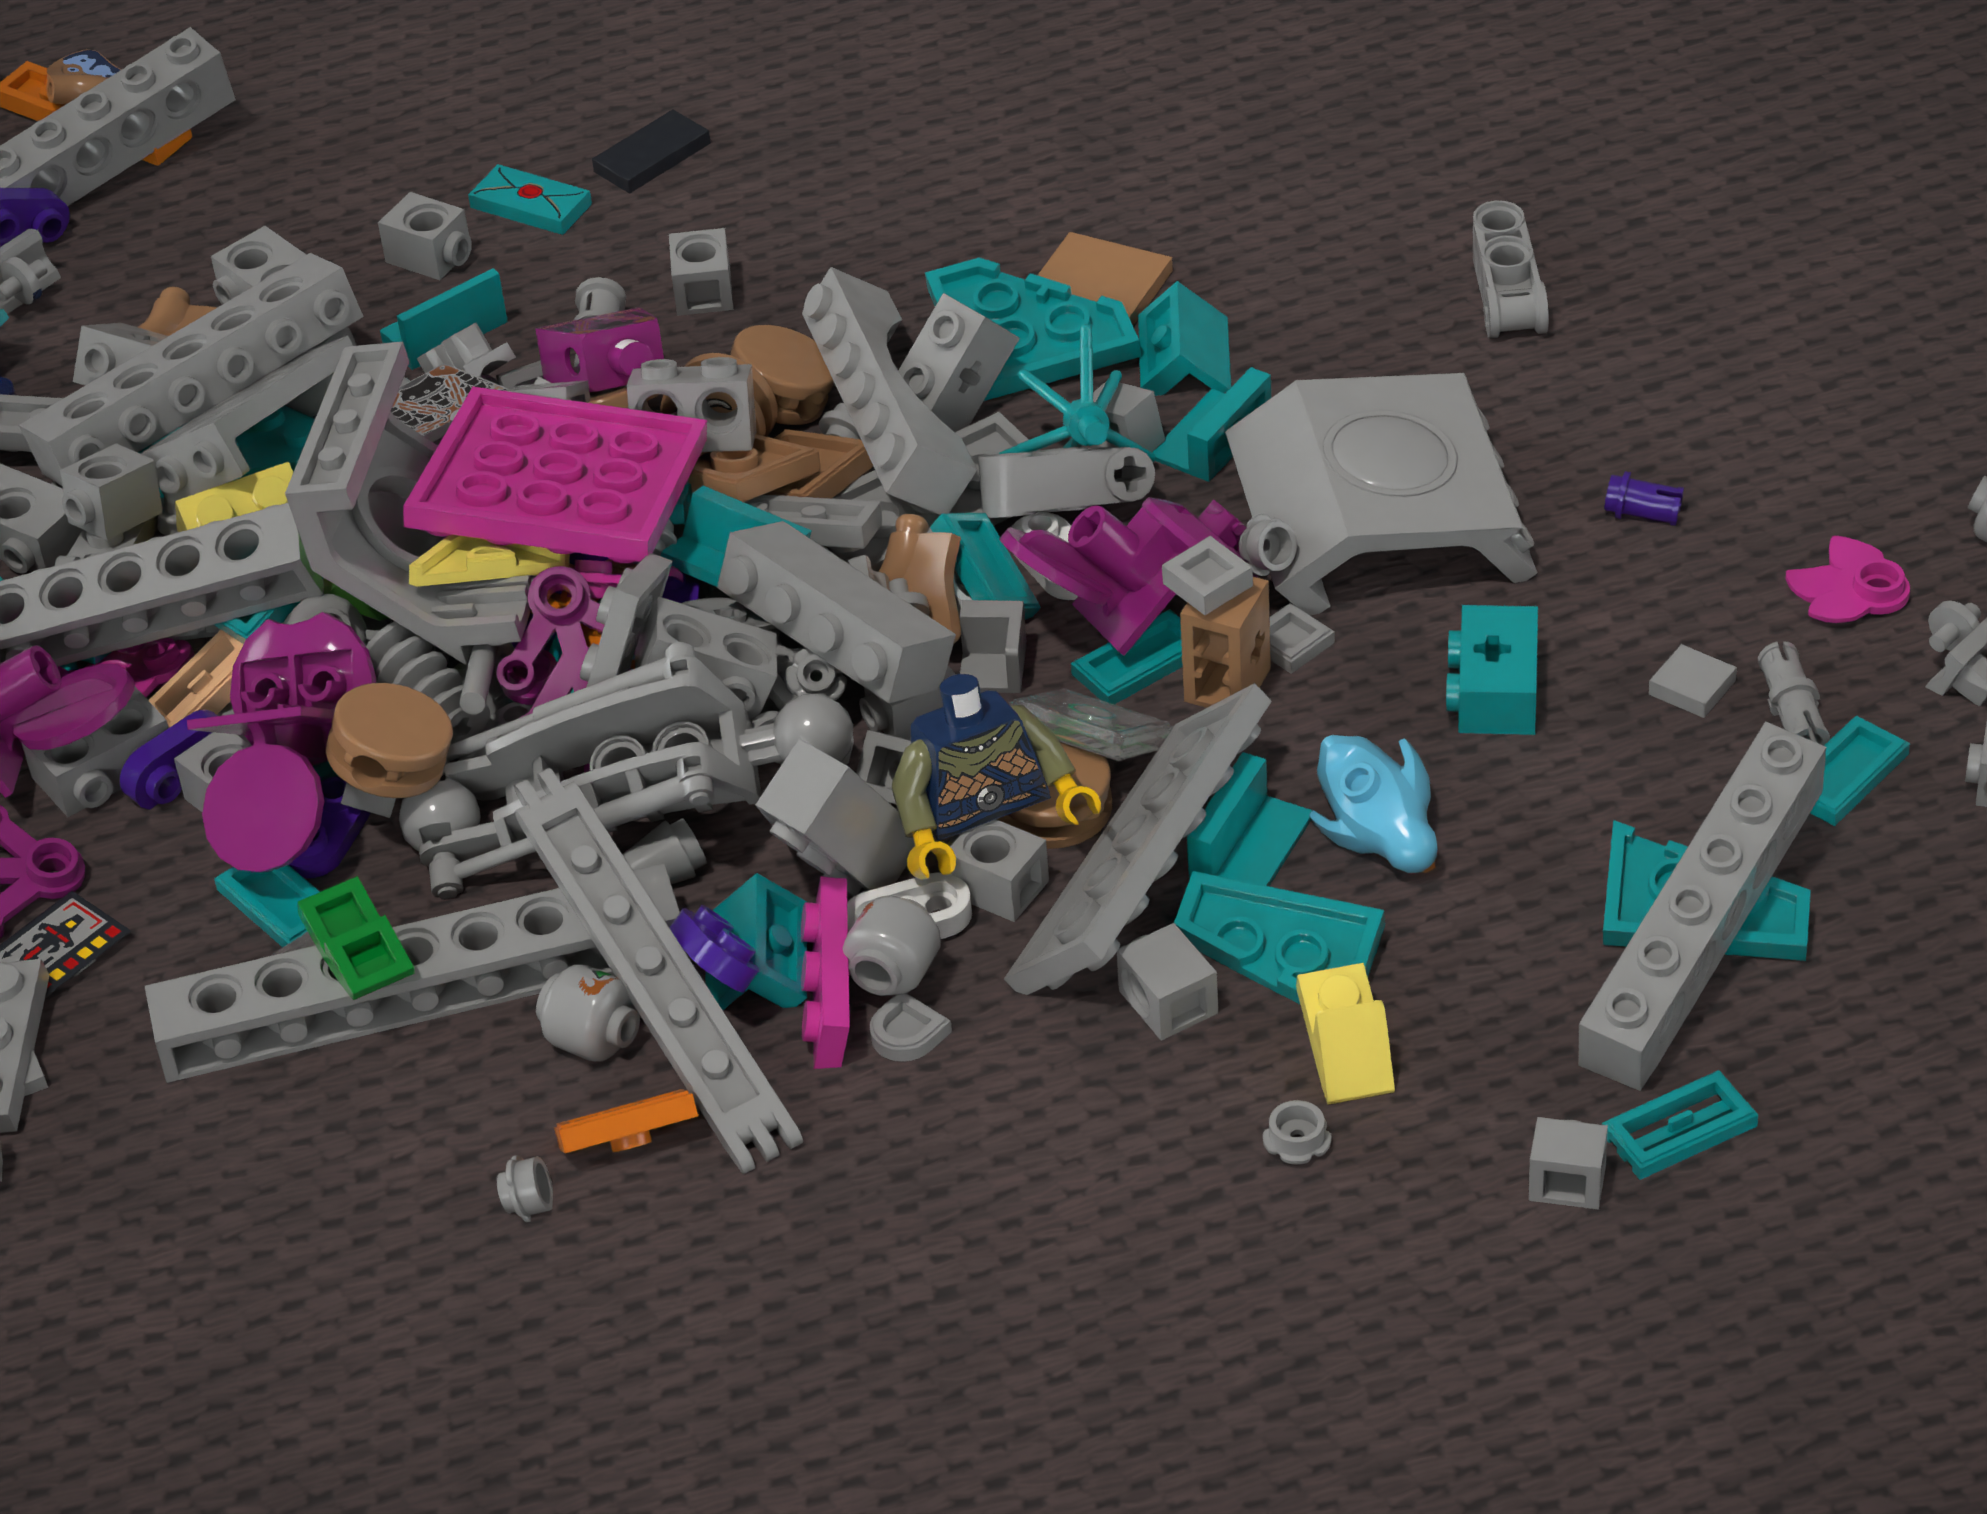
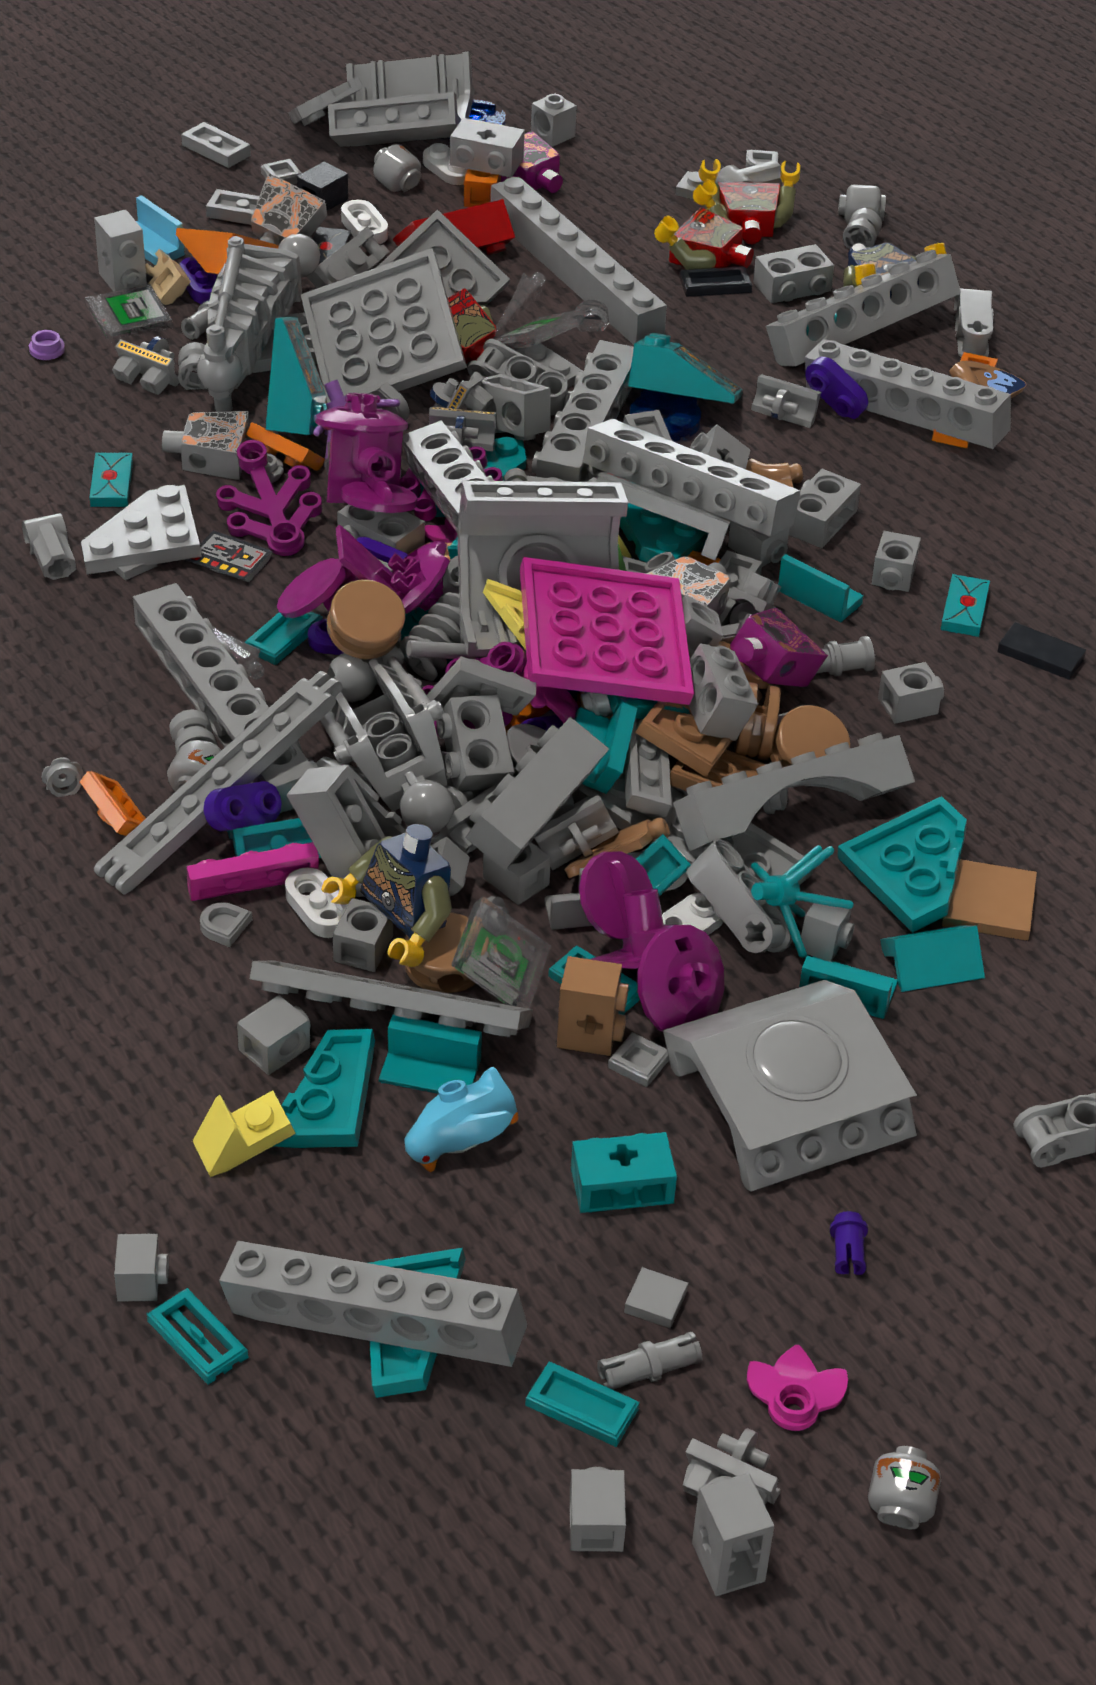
camera: 70 degrees right, 0 degrees up
(111, 491) = (573, 464): light grey brick -> none
(354, 938) = (210, 657): green slope -> none
(500, 1017) = (190, 726): none -> light grey wheel
(891, 945) = (266, 888): light grey head -> none
(956, 361) = (834, 817): light grey brick -> none
(1207, 575) = (592, 954): light grey plate -> none
(1278, 546) = (671, 1010): light grey plate -> none
(1292, 1119) = (155, 1115): light grey plate -> none

